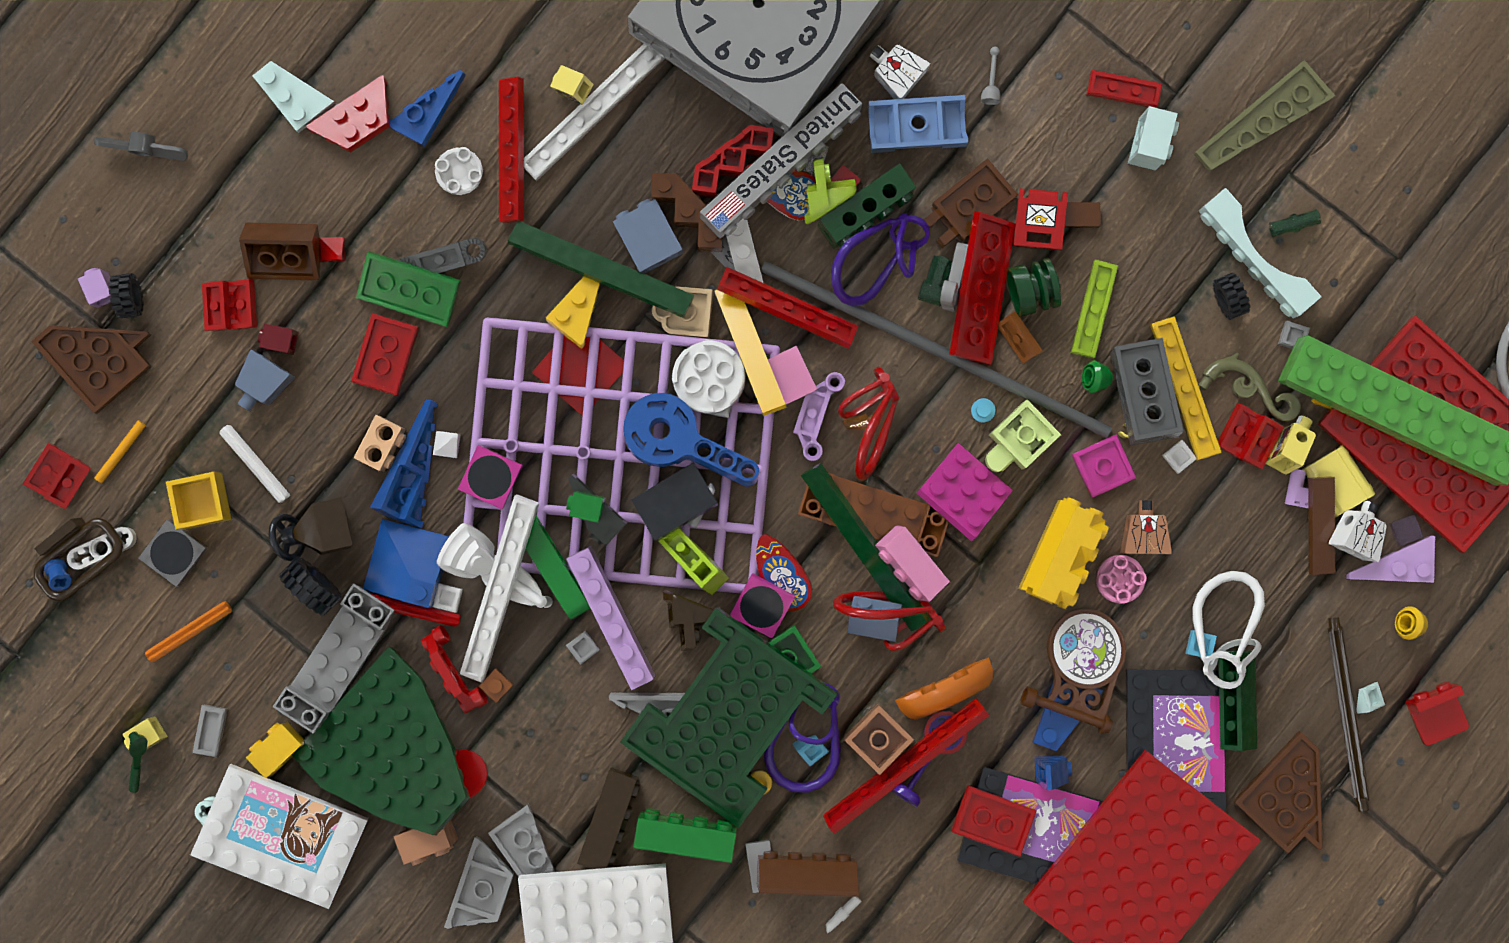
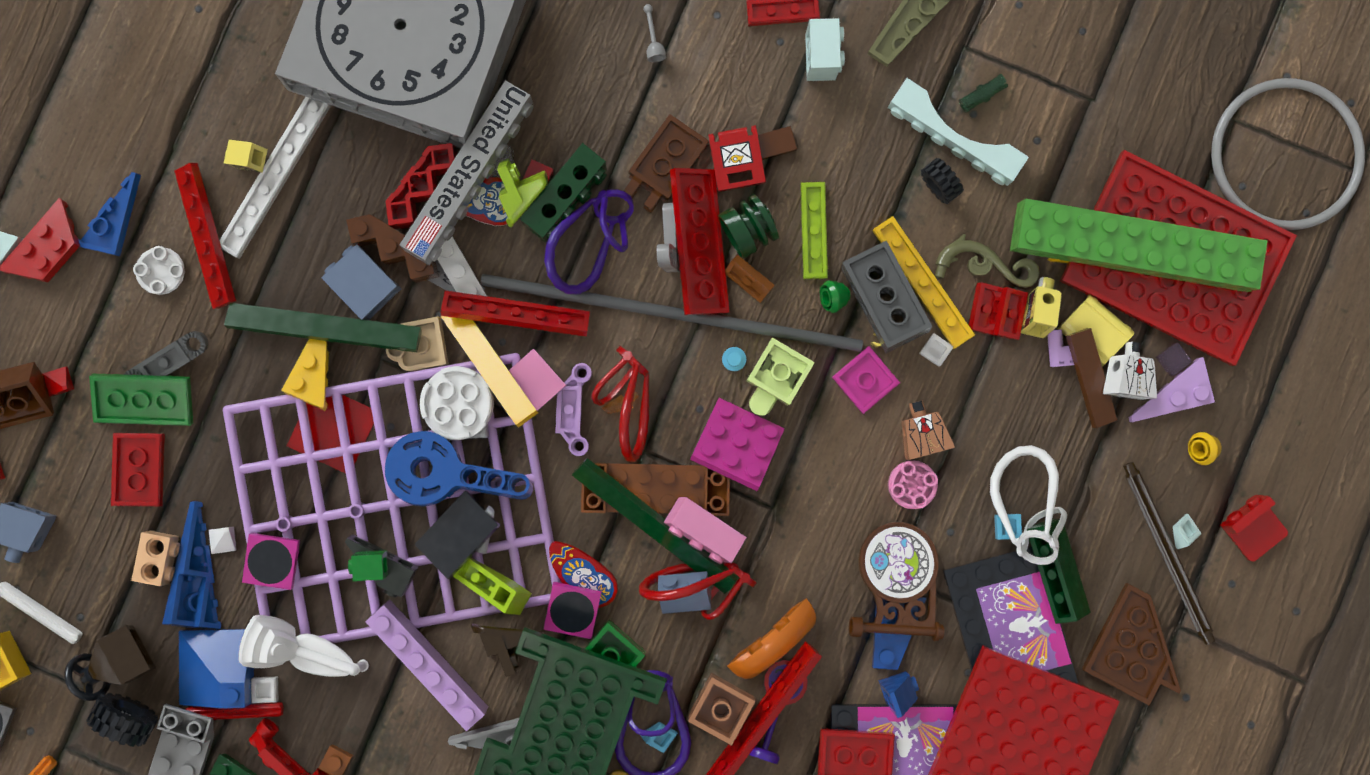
camera: 20 degrees left, 0 degrees up
(278, 339) = (27, 484): dark red brick -> none
(499, 588) = (308, 668): white tile -> none
(556, 571) = (350, 627): green beam -> none
(583, 647) = (410, 700): light grey tile -> none
(892, 126) = (616, 92): medium blue piece -> none
(898, 70) = (560, 53): white torso -> none
(937, 274) = (652, 236): clear green piece -> none
(1063, 553) = (850, 477): yellow brick -> none
(1290, 334) = (1009, 201): light grey tile -> none

